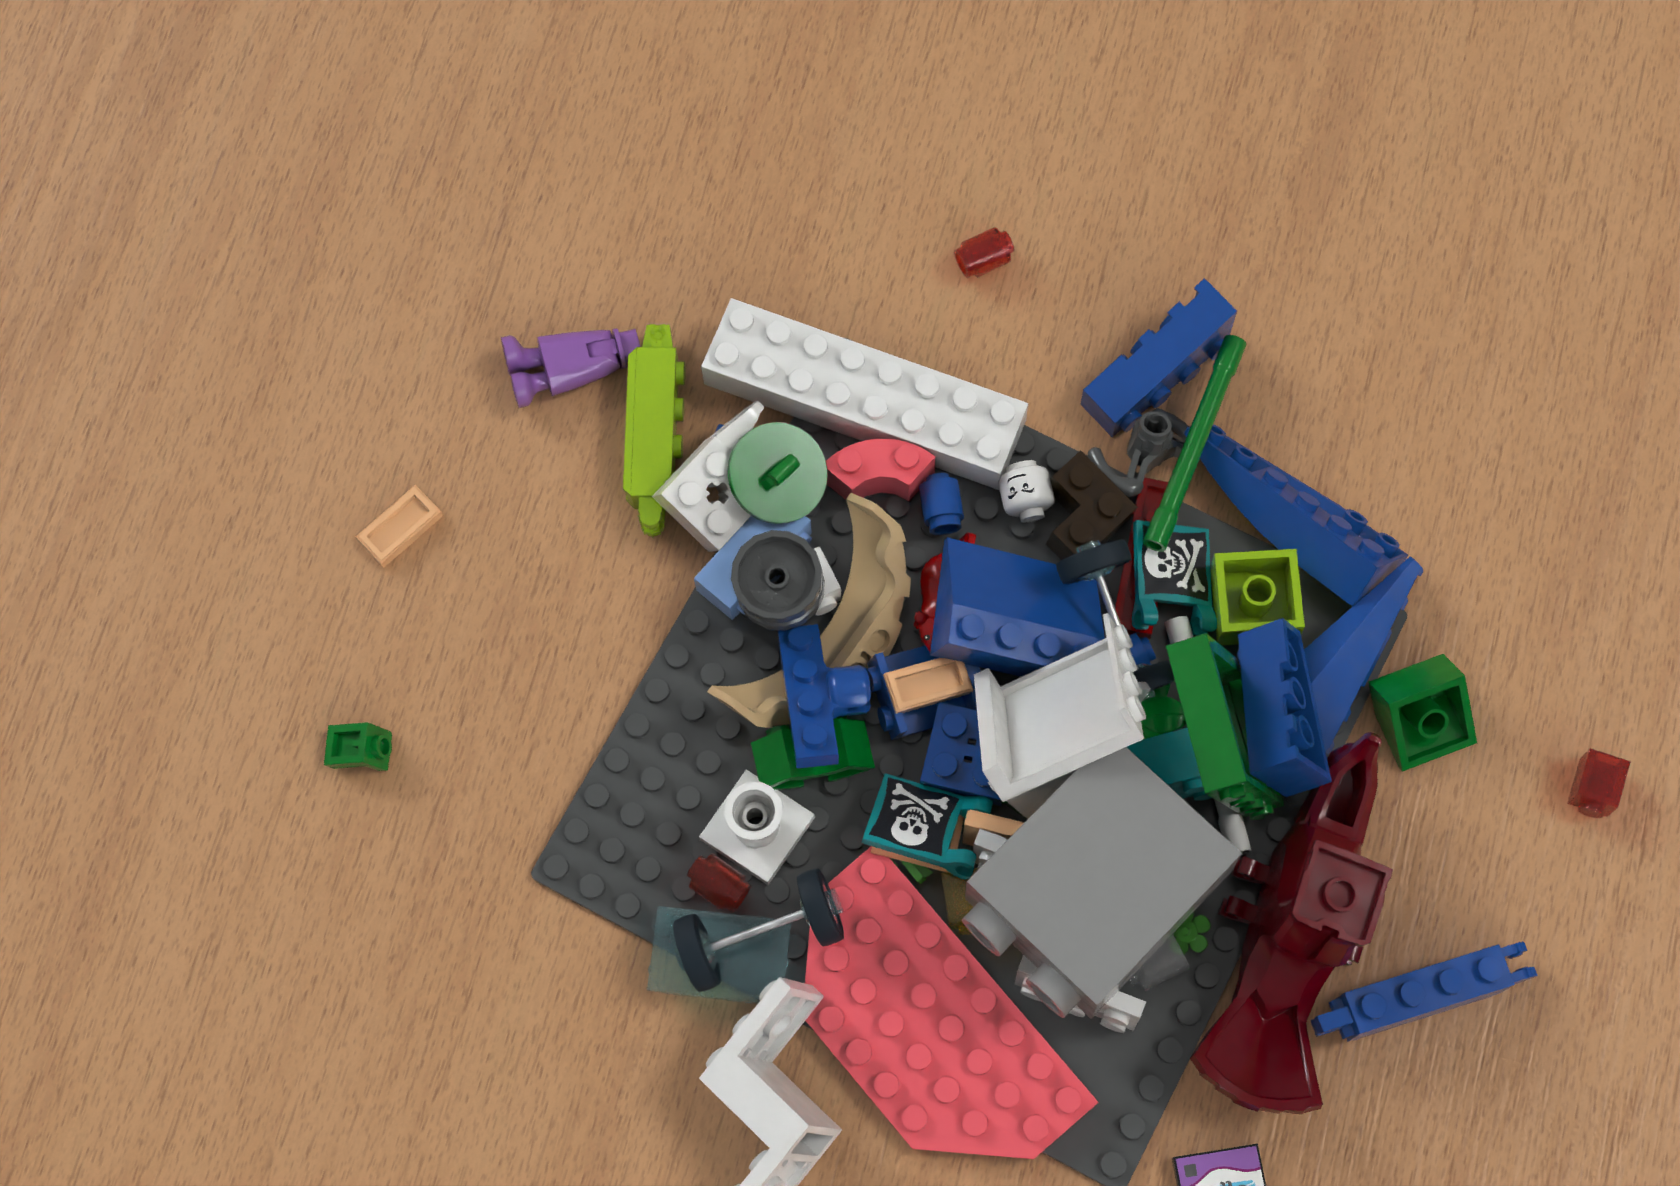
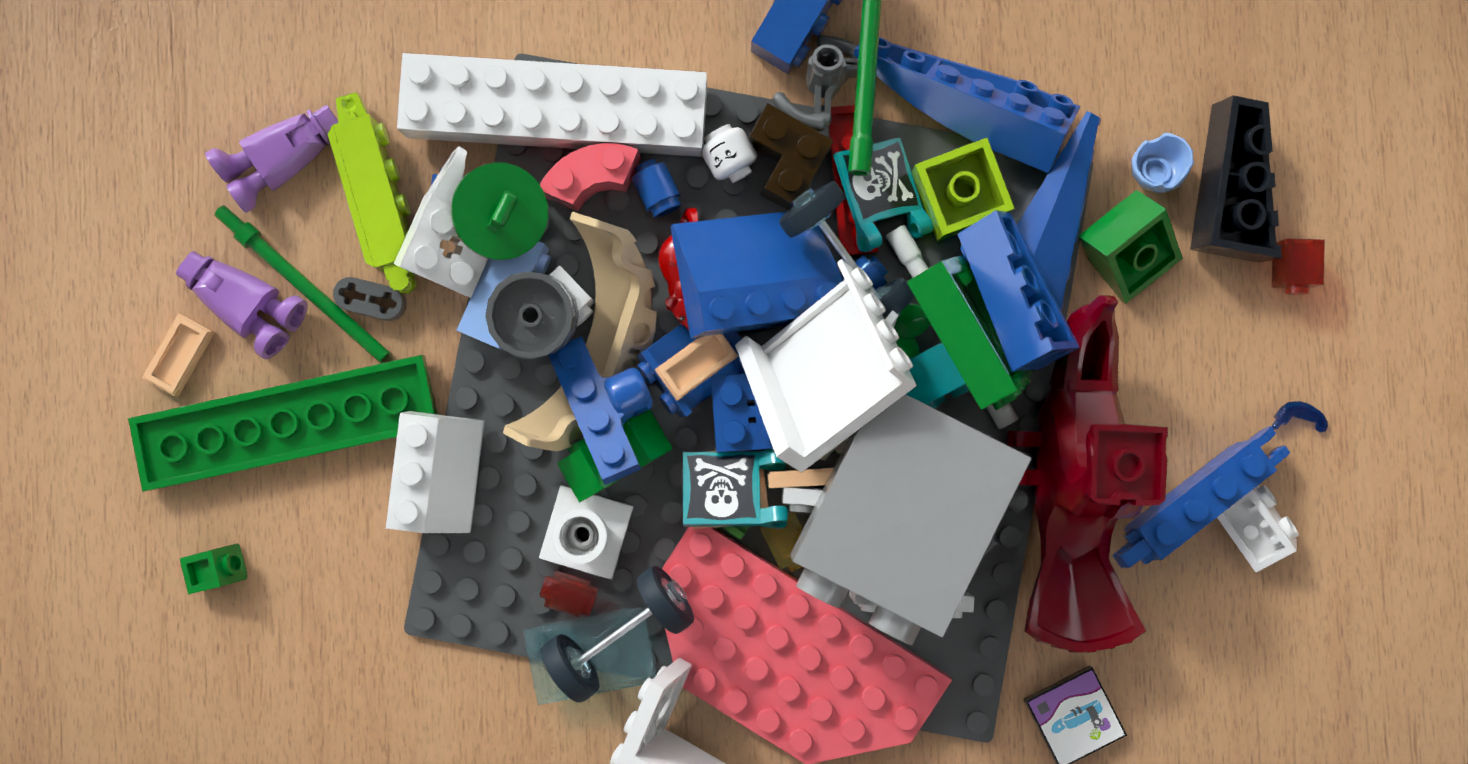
camera: 20 degrees left, 15 degrees up
(479, 487) = (237, 299): none -> medium lavender piece
(483, 624) = (278, 423): none -> green plate
(512, 432) = (250, 237): none -> green bar
(617, 522) = (371, 291): none -> dark grey beam
(622, 715) = (434, 473): none -> white slope
(1478, 636) = (1162, 163): none -> light blue hair
(1481, 1045) = (1260, 529): none -> white bracket
(1550, 686) = (1236, 184): none -> black wedge
(1565, 942) = (1302, 411): none -> clear blue piece

